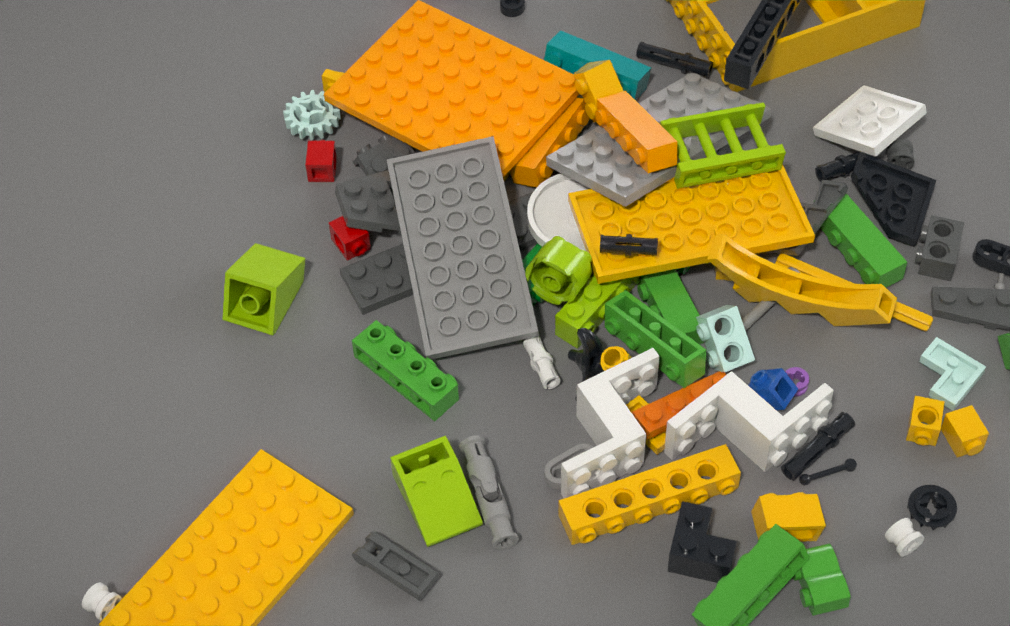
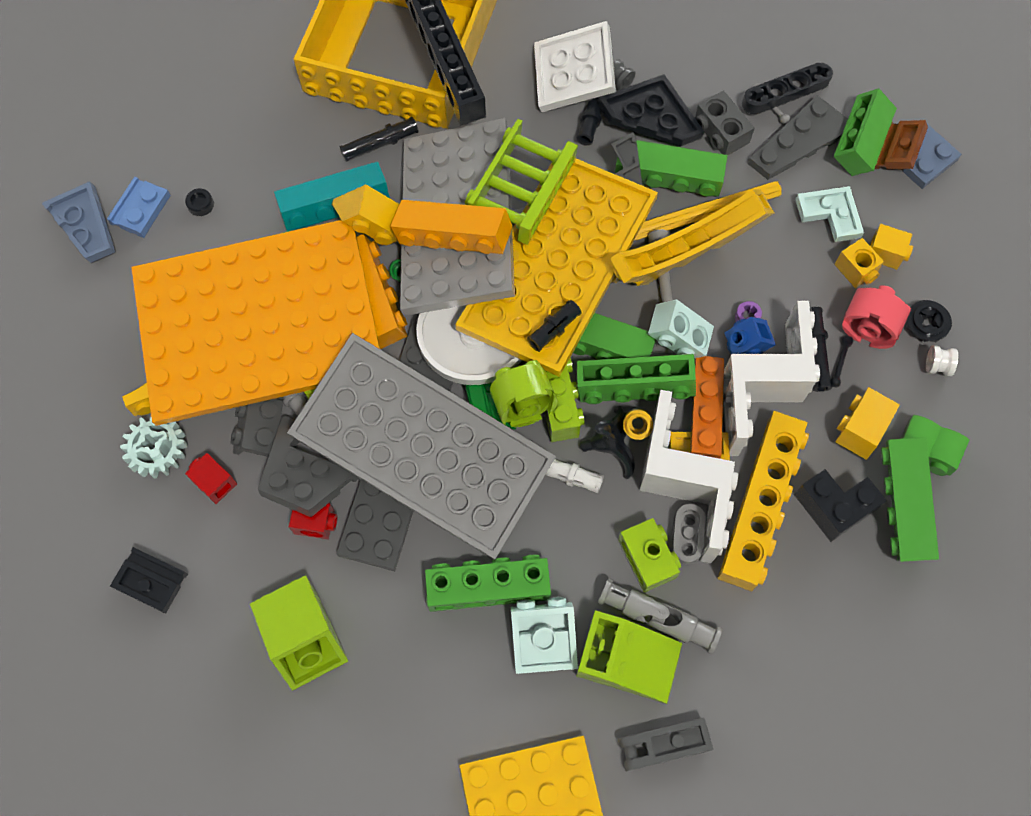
camera: 50 degrees left, 15 degrees up
(219, 184) = (149, 580): none -> black plate
(400, 426) = (544, 636): none -> light aqua plate
(528, 451) = (649, 554): none -> lime brick
(884, 457) = (876, 316): none -> coral brick

